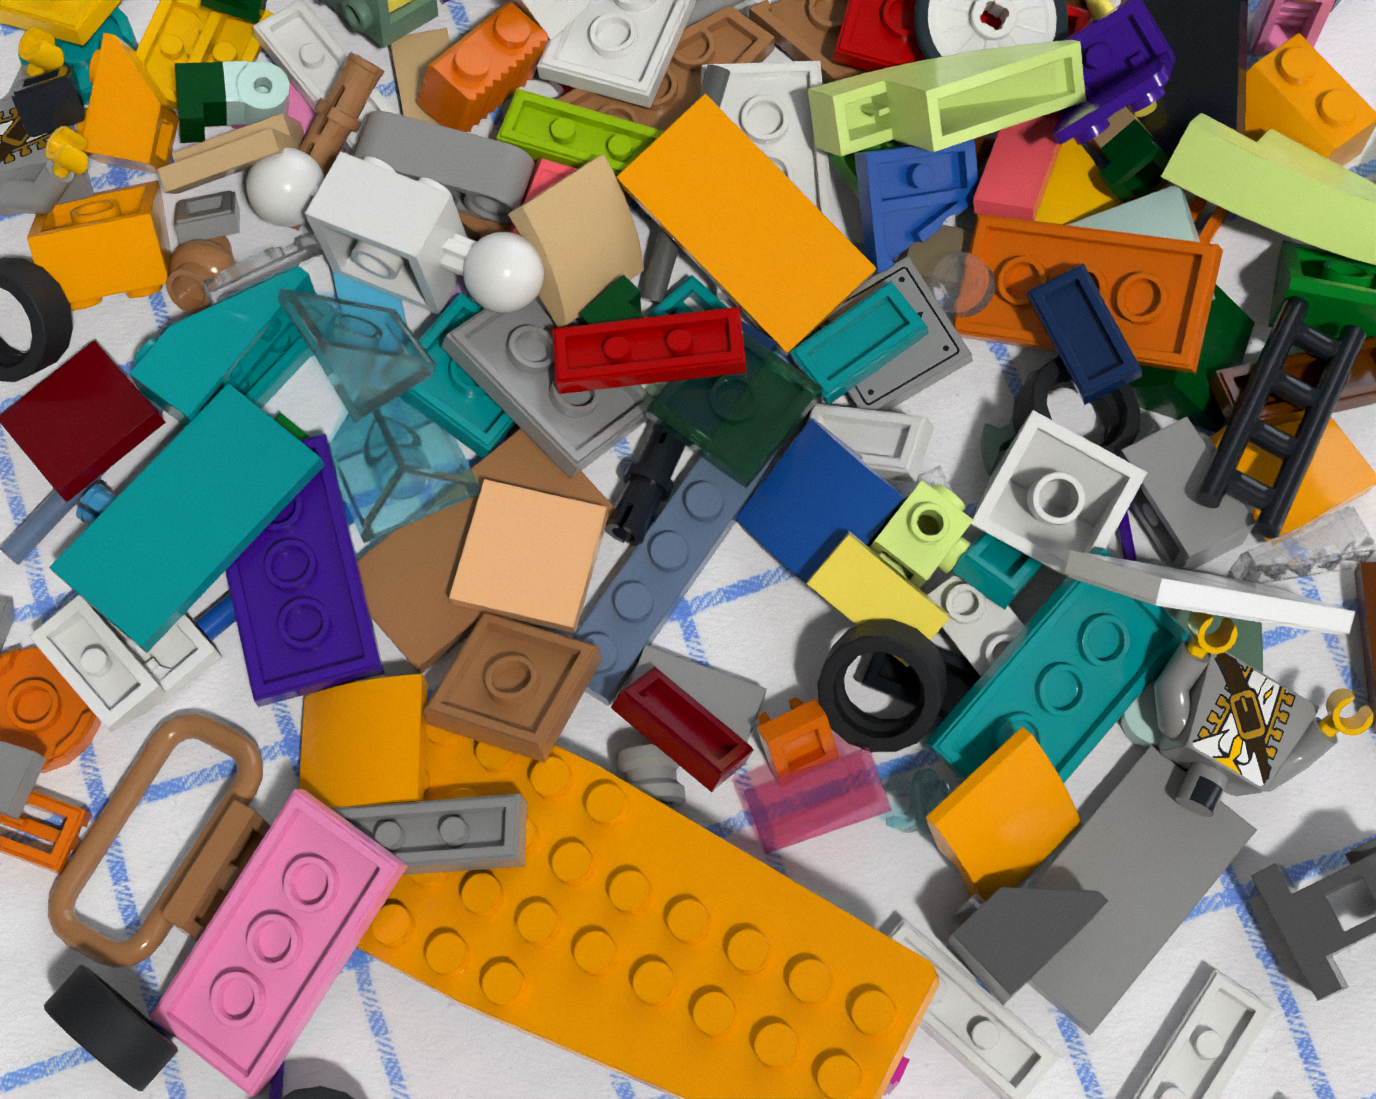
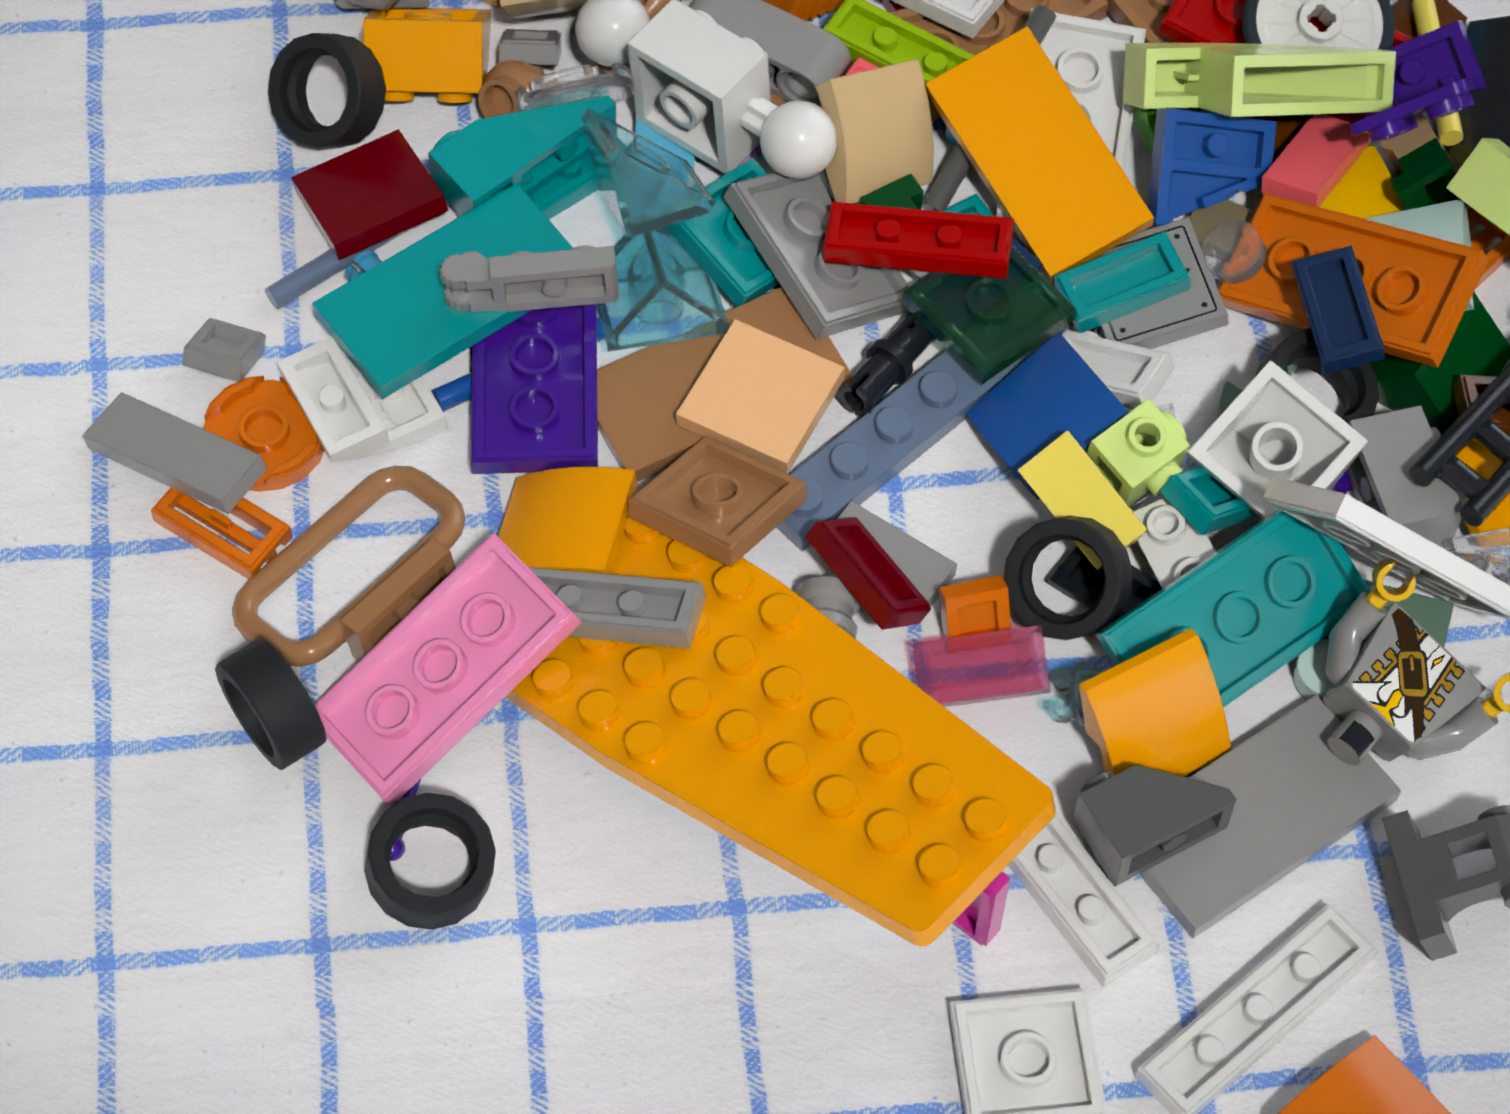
camera: 10 degrees right, 10 degrees down
(266, 495) = (530, 279): none -> light grey hinge

